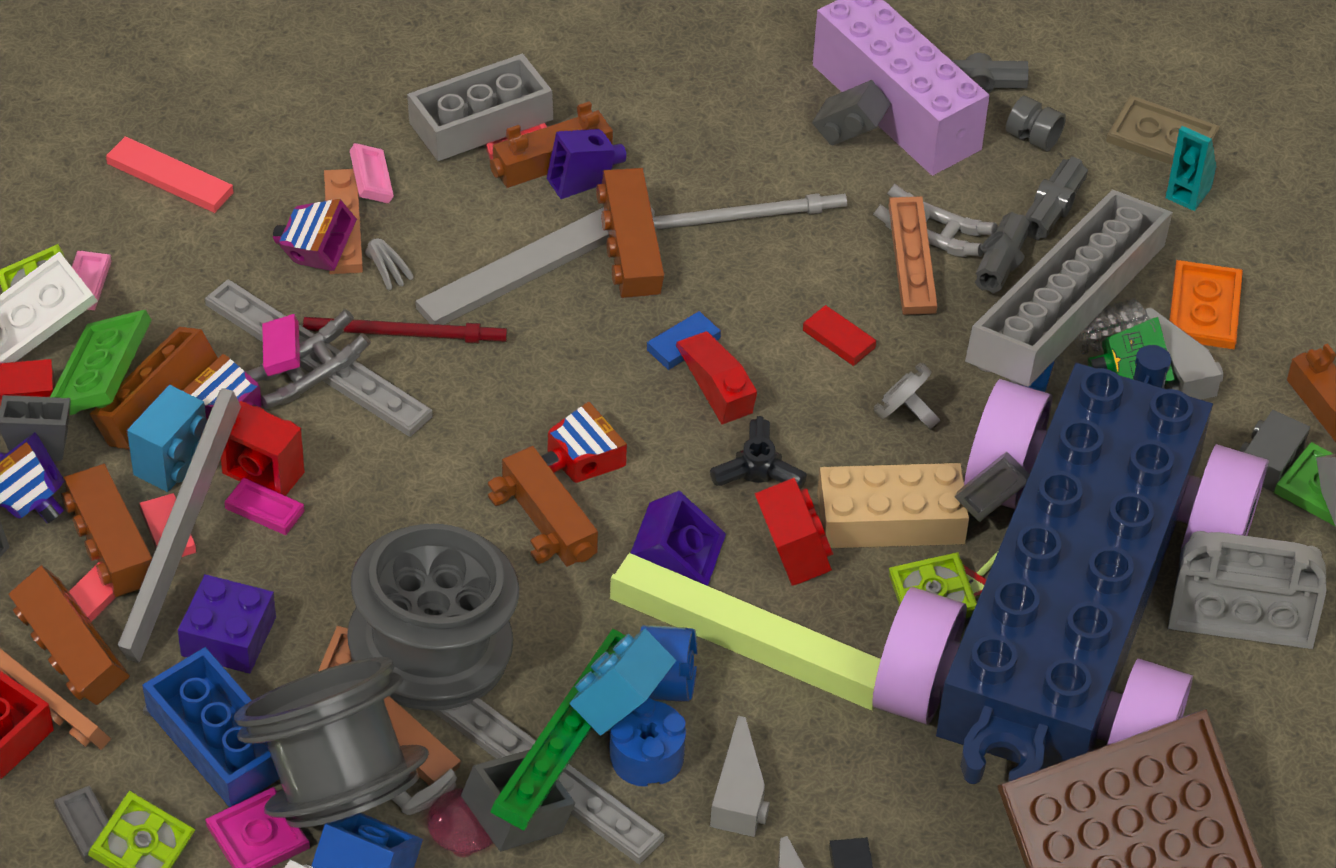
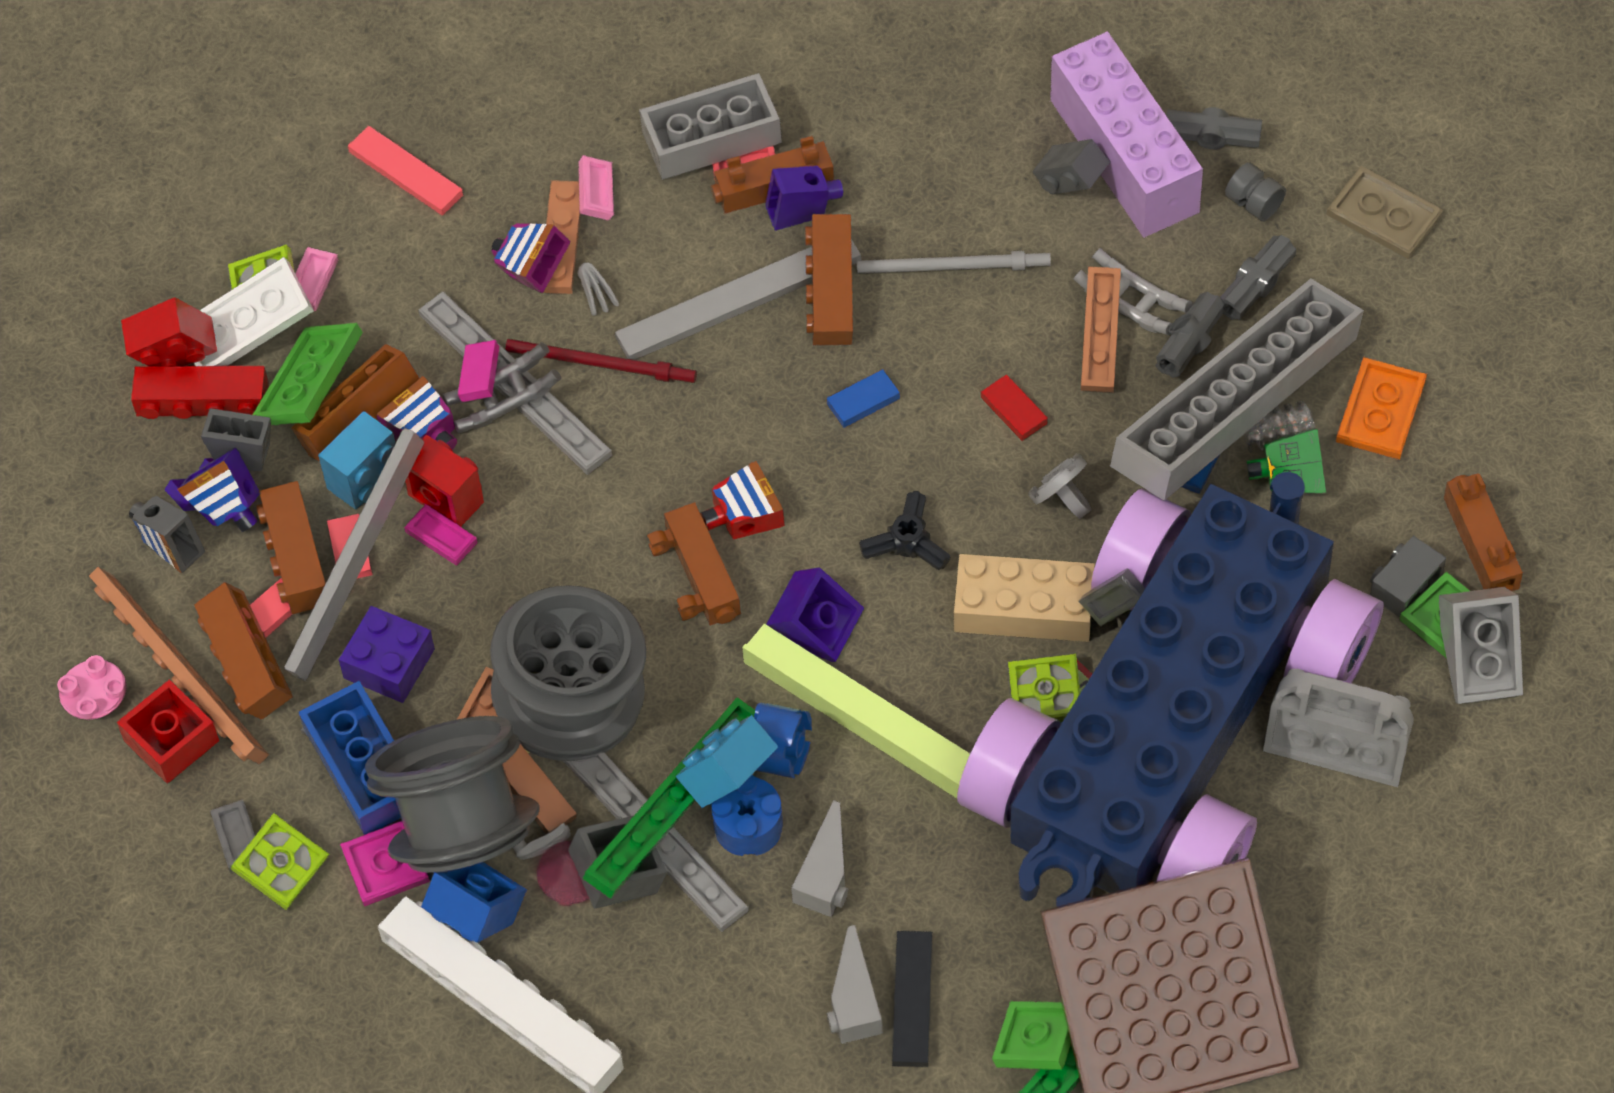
camera: 15 degrees right, 10 degrees up
(719, 377) = (885, 442): red slope -> none
(795, 530) = (922, 618): red brick -> none
(1191, 169) = (1395, 265): teal slope -> none
(1191, 362) = (1344, 471): light grey slope -> none

